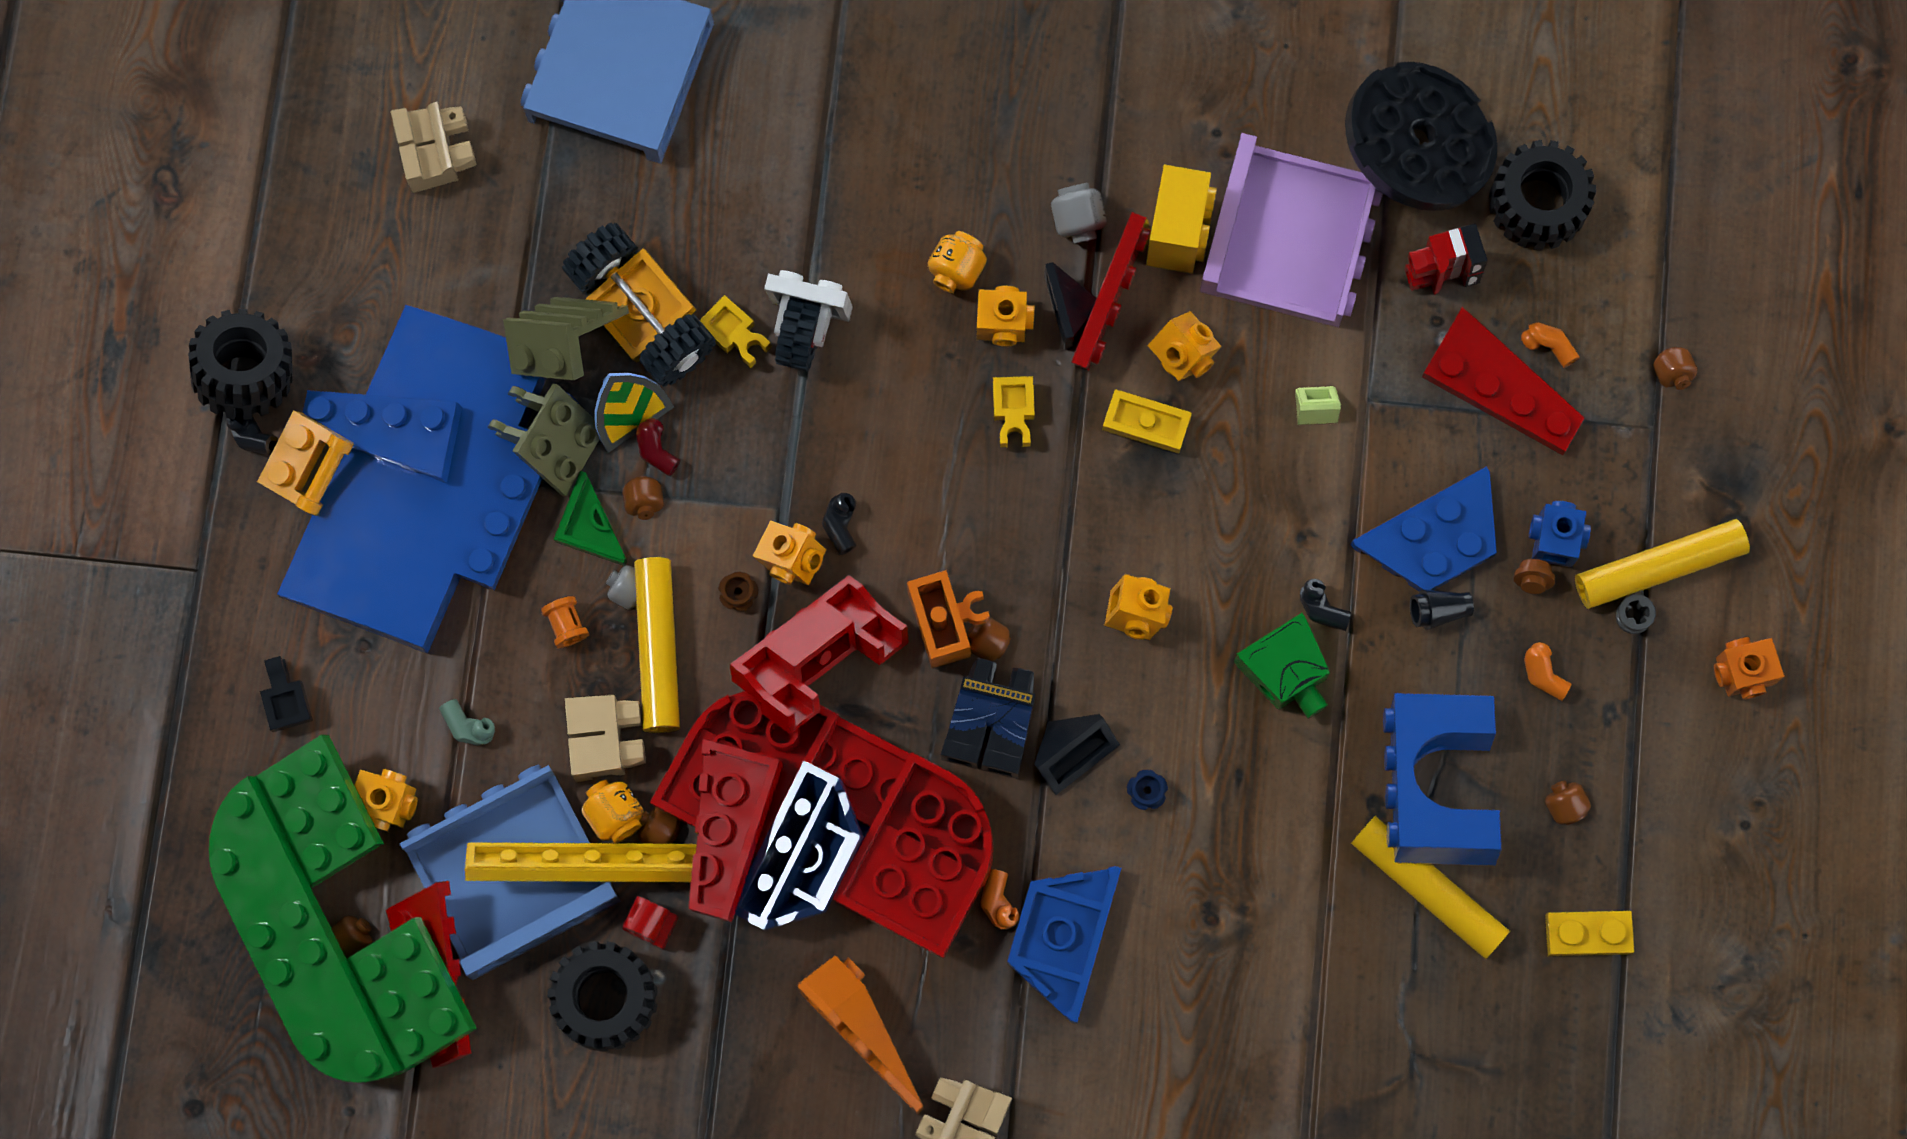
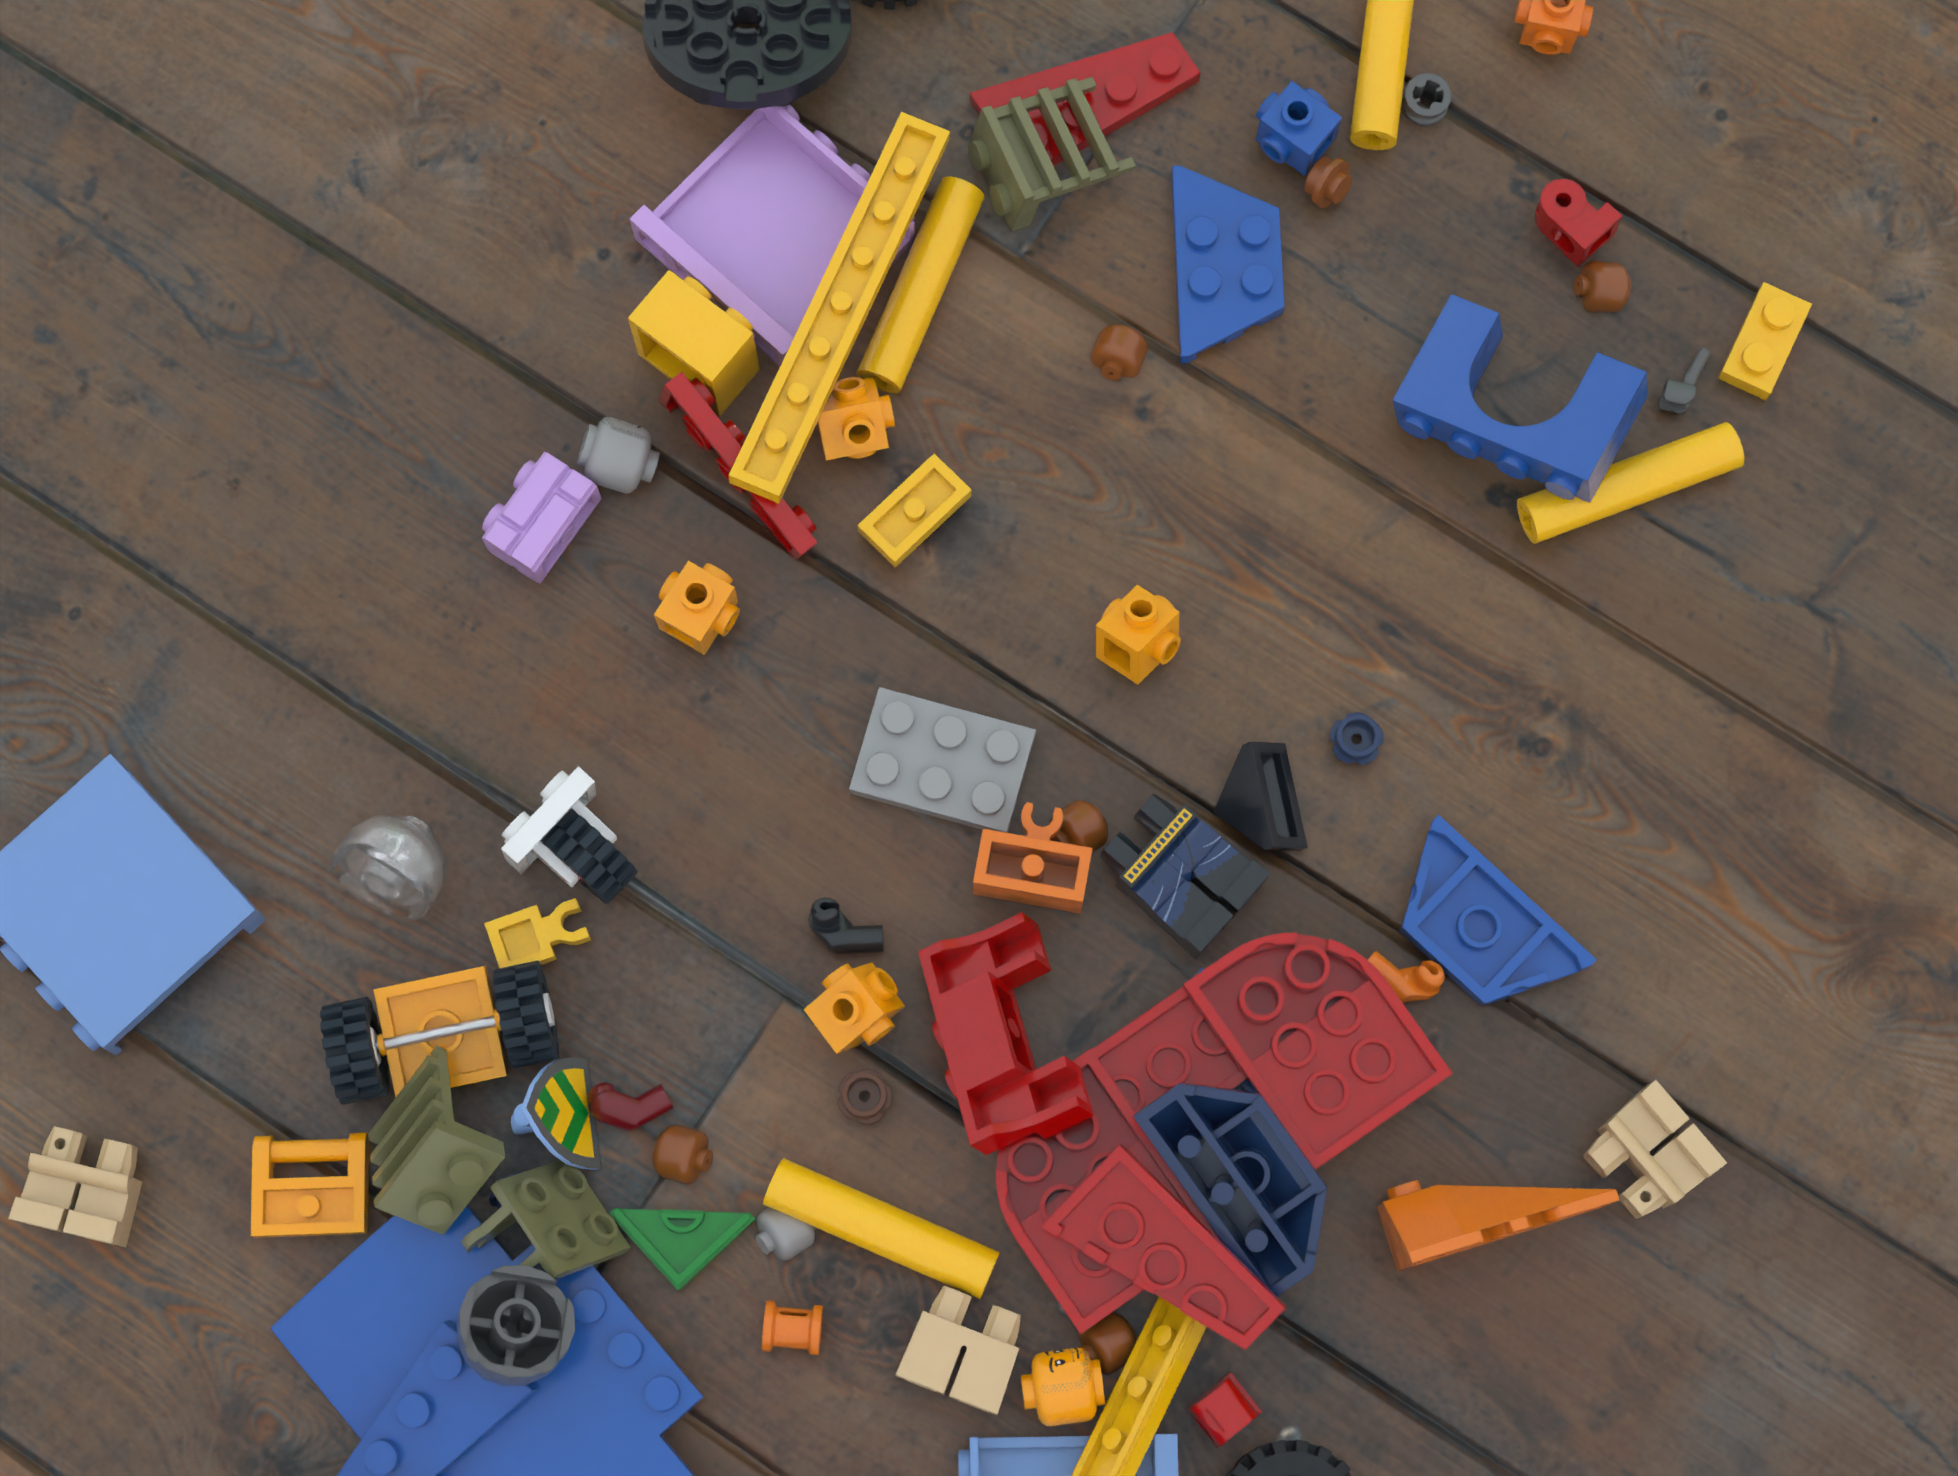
camera: 65 degrees left, 0 degrees up
(472, 442) = (515, 1325): none -> dark grey cylinder
(493, 285) = (310, 1203): none -> light orange plate
(733, 217) = (391, 863): none -> clear cylinder
(957, 262) = (599, 626): light orange head -> none
(987, 528) = (942, 761): none -> light grey plate
(1010, 186) = (540, 516): none -> lavender brick
(1013, 403) = (811, 650): yellow plate -> none
(1070, 304) = (722, 525): black slope -> none
(1252, 295) = (839, 308): none -> yellow plate
(1287, 666) = (1294, 504): green torso -> none
(1307, 344) = (921, 284): none -> yellow piece
(1317, 405) = (997, 311): yellowish green slope -> none
(1319, 608) = (1239, 436): black arm -> none
(1335, 499) = (1119, 352): none -> dark orange piece
(1430, 354) = (1017, 162): none -> olive plate
(1437, 608) = (1310, 305): black cone -> none
(1447, 257) = (912, 61): red hips -> none
(1514, 892) = (1678, 395): none -> dark grey hand
(1541, 674) = (1441, 234): orange arm -> none
(1553, 338) = (1060, 17): orange arm -> none
(1598, 758) = (1573, 222): none -> red leg

